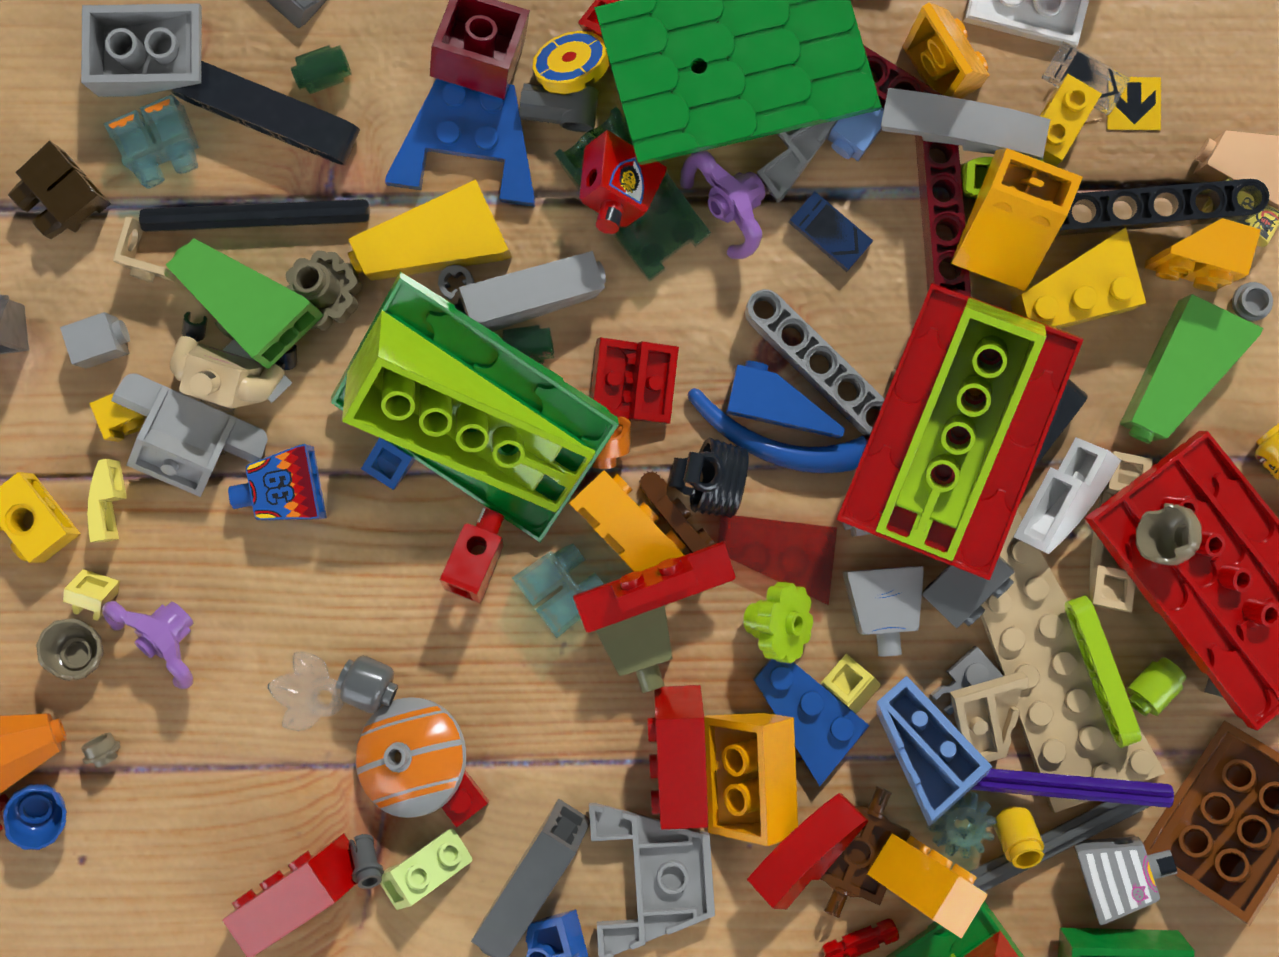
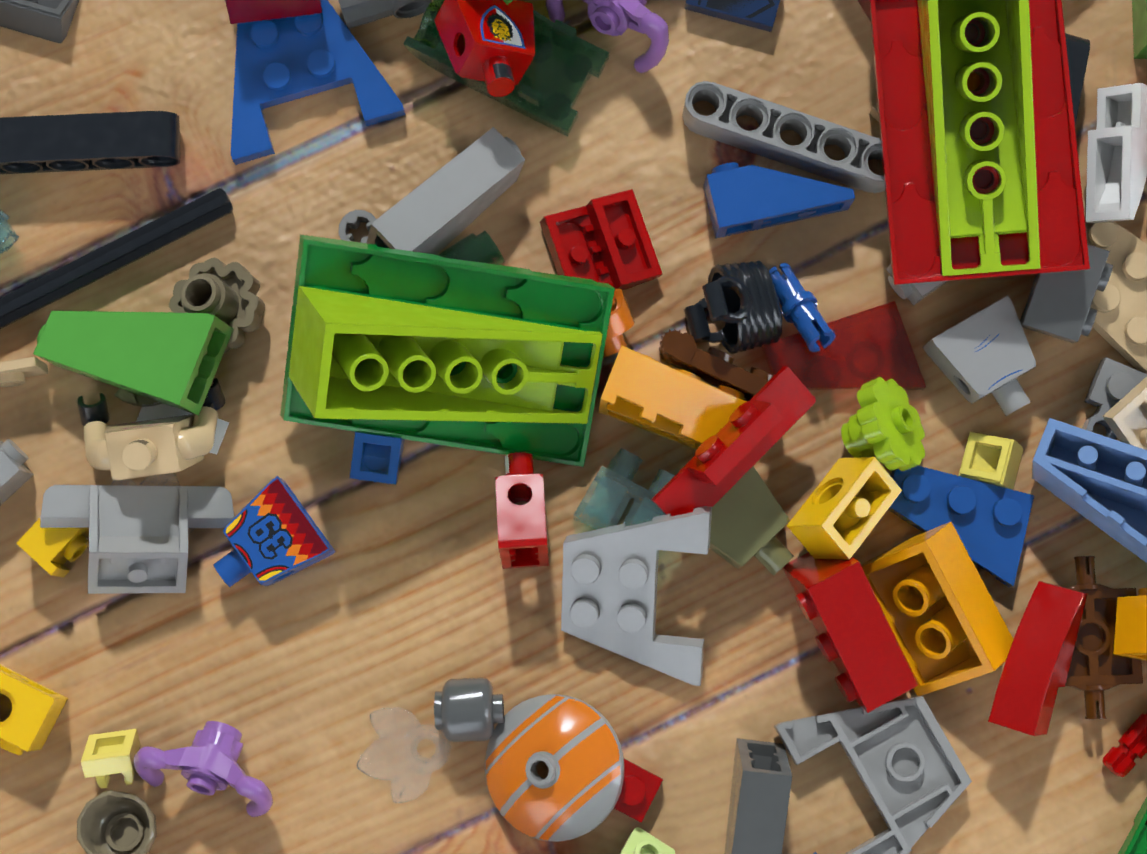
camera: 35 degrees left, 5 degrees down
(105, 487) = (75, 634): light yellow slope -> none
(321, 68) = (107, 71): clear green brick -> none
(431, 236) = (312, 192): yellow slope -> none
(517, 647) = (613, 590): none -> light grey wing
(718, 669) = (844, 508): none -> yellow brick
(760, 499) = (801, 308): none -> blue pin
(821, 459) = (844, 236): blue animal -> none

